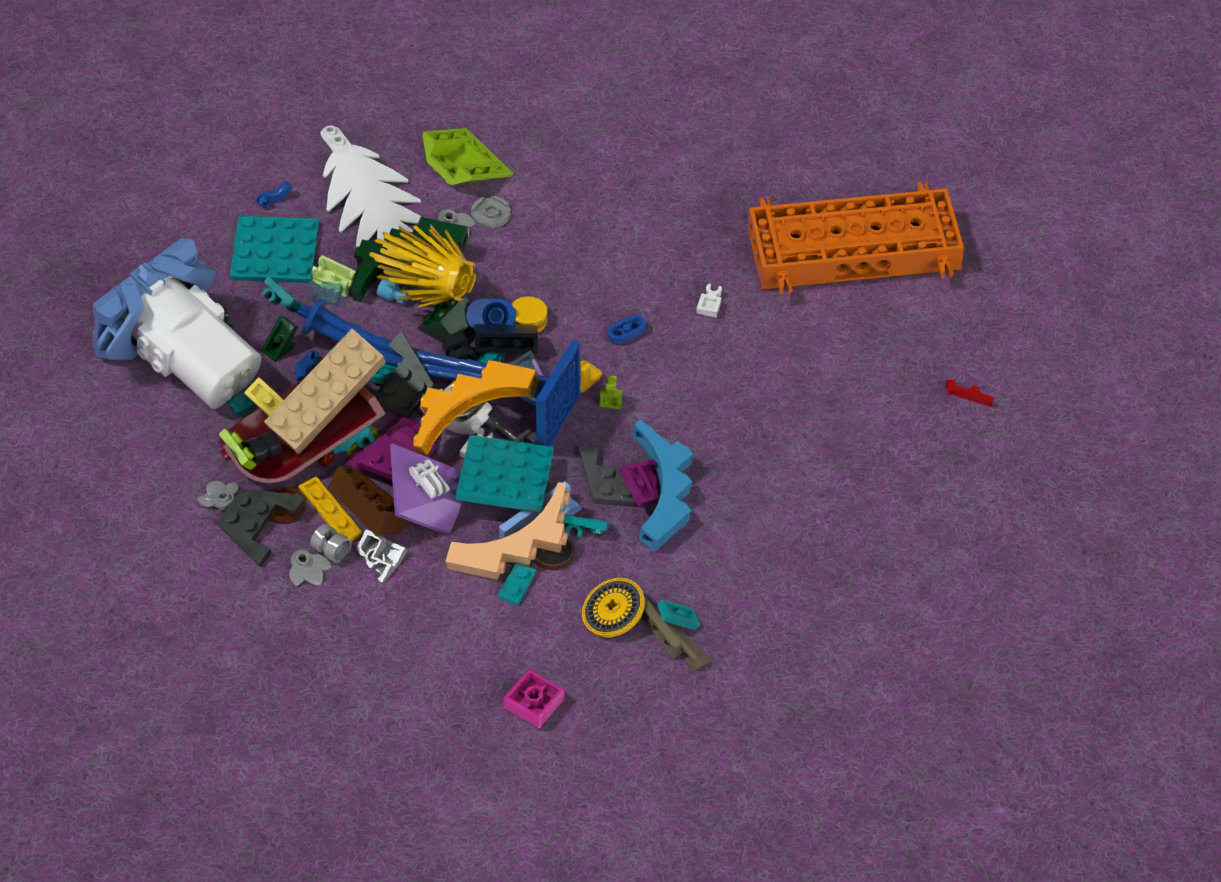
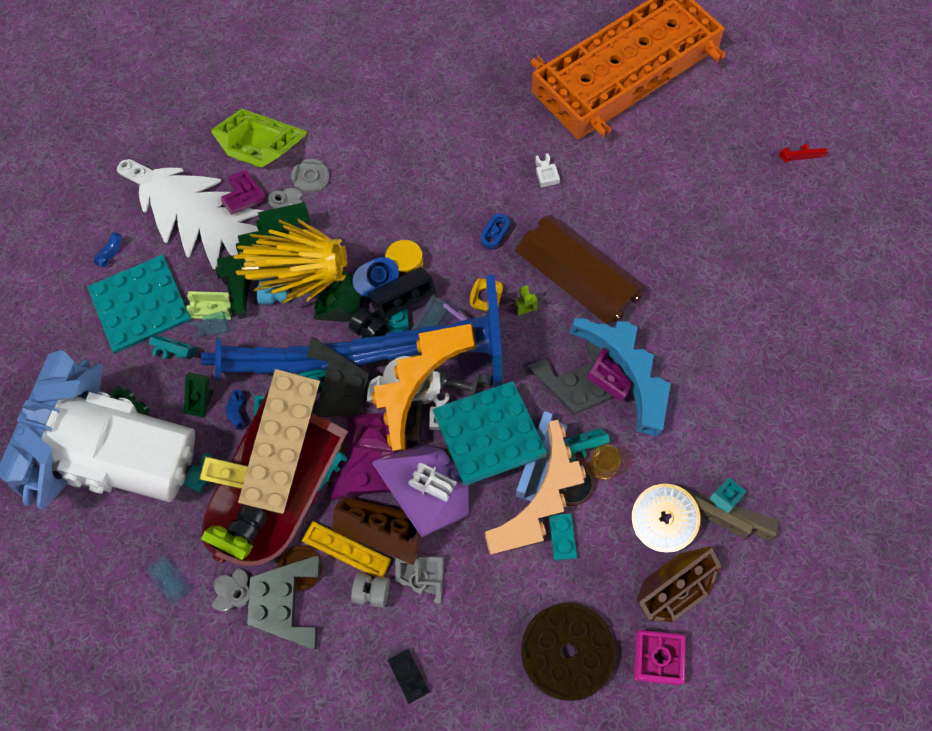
camera: 25 degrees left, 15 degrees up
(173, 464) = (168, 579): none -> clear light blue plate
(310, 570) = (366, 628): light grey plate -> none
(322, 618) = (408, 676): none -> black plate
(422, 201) = (245, 195): none -> magenta plate
(447, 440) = (414, 423): none -> black plate
(460, 681) = (568, 677): none -> dark brown plate
(586, 659) = (679, 585): none -> reddish brown wedge
(590, 544) = (604, 462): none -> clear yellow wheel
(678, 389) = (580, 269): none -> reddish brown panel

